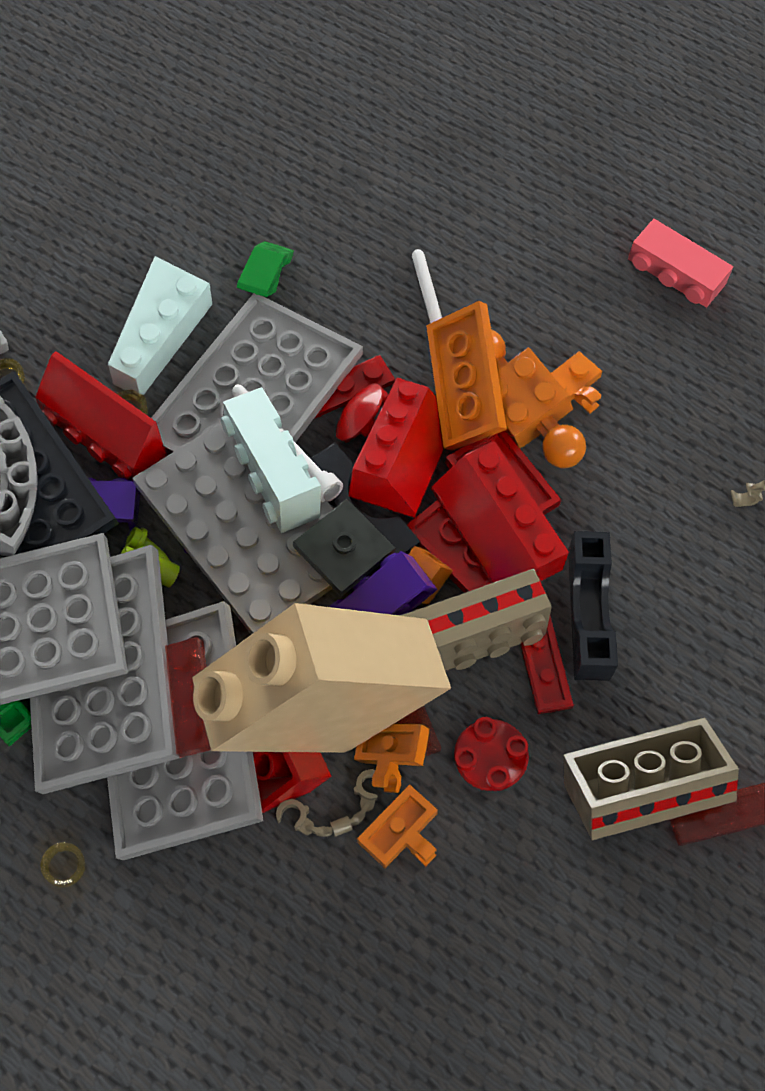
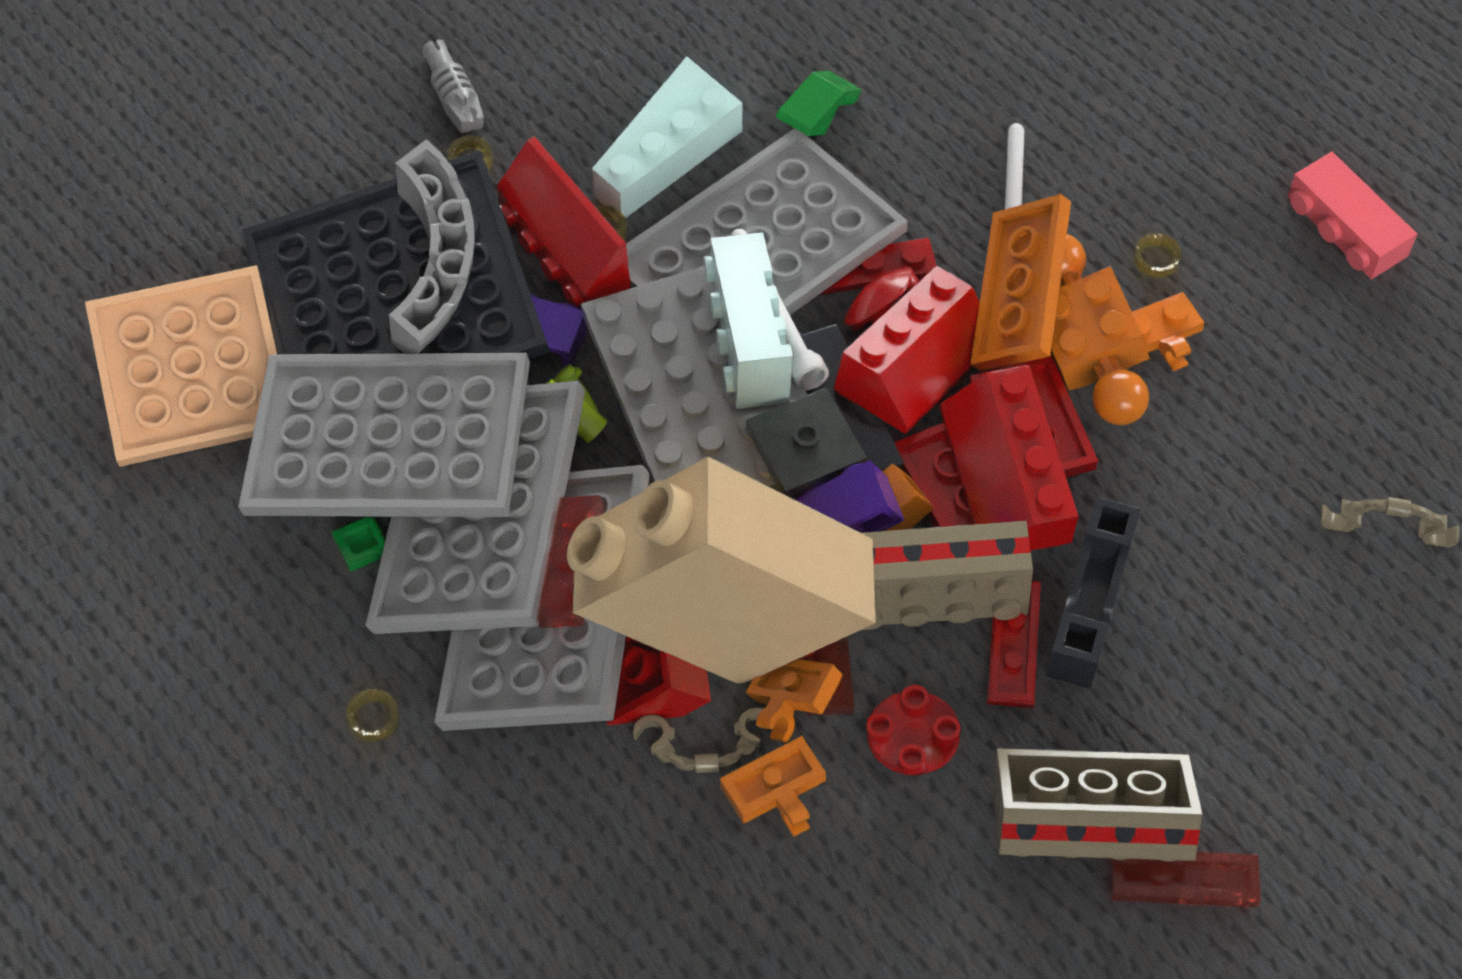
camera: 20 degrees right, 5 degrees down
(551, 315) = (1159, 240): none -> clear yellow piece

